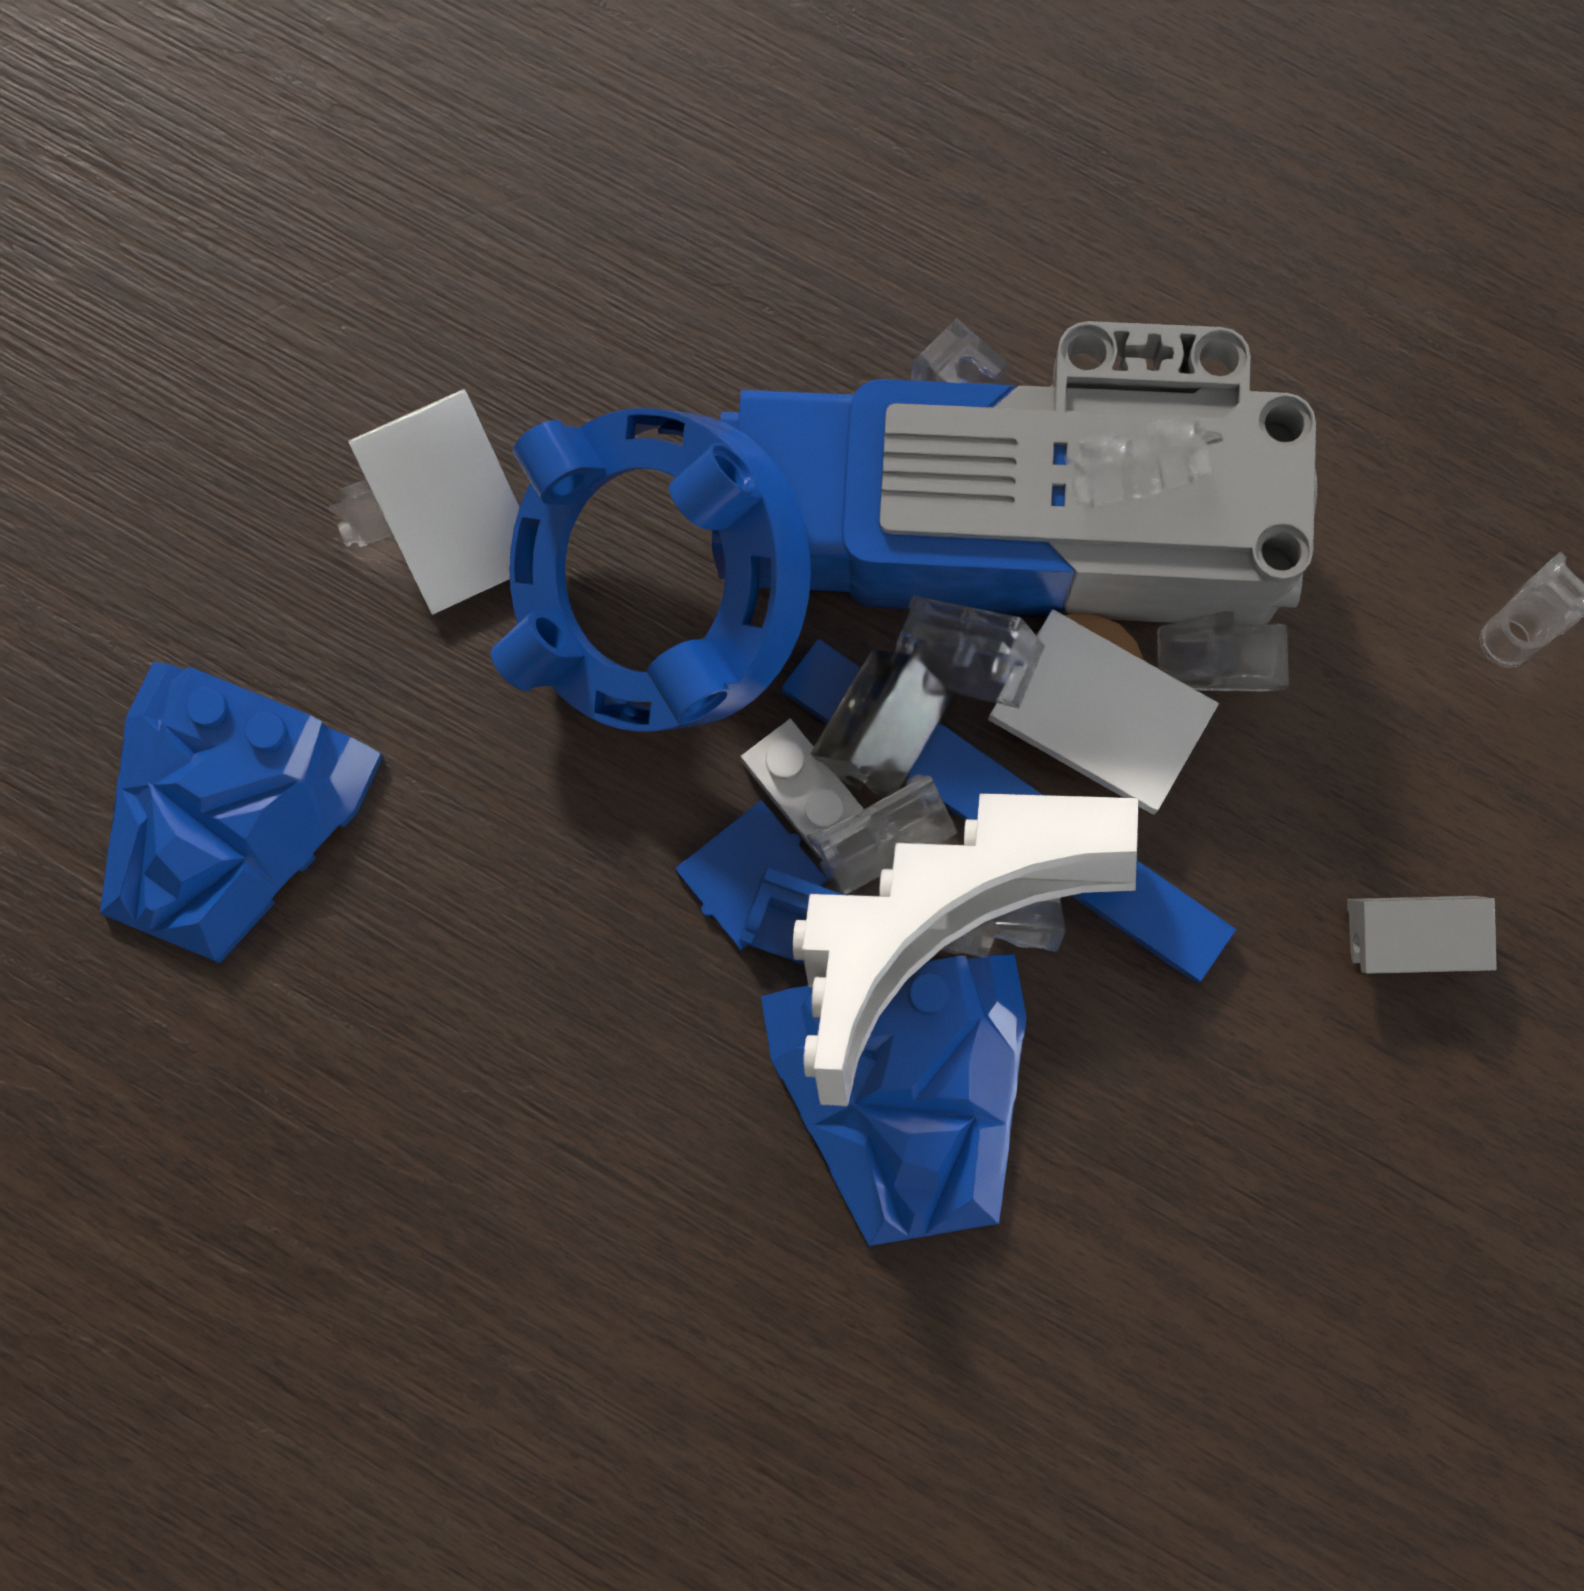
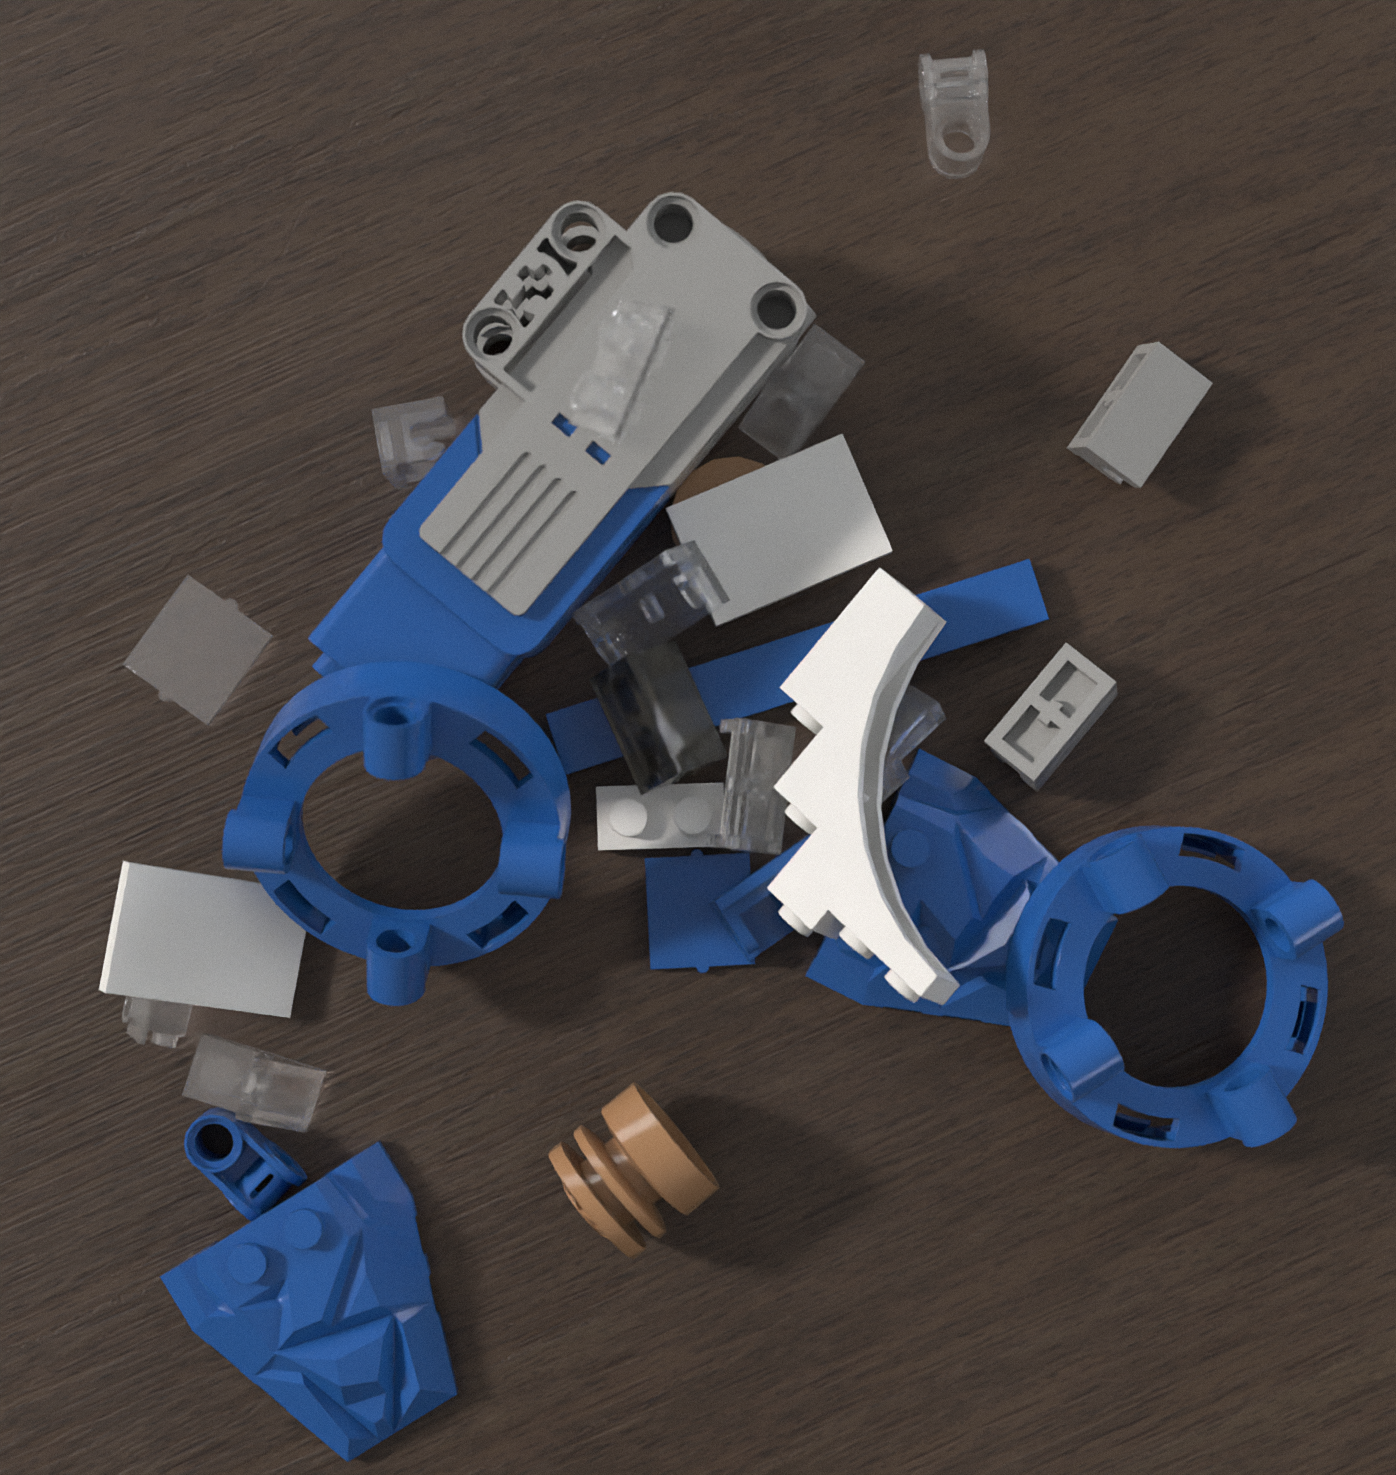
camera: 55 degrees left, 10 degrees up
(289, 667) = (245, 1166): none -> blue piece
(359, 626) = (254, 1083): none -> clear slope
(484, 959) = (632, 1171): none -> medium nougat wheel
(671, 350) = (198, 650): none -> clear piece
(860, 1253) = (1077, 1057): none -> blue piece
(1124, 1041) = (1052, 716): none -> light grey hinge

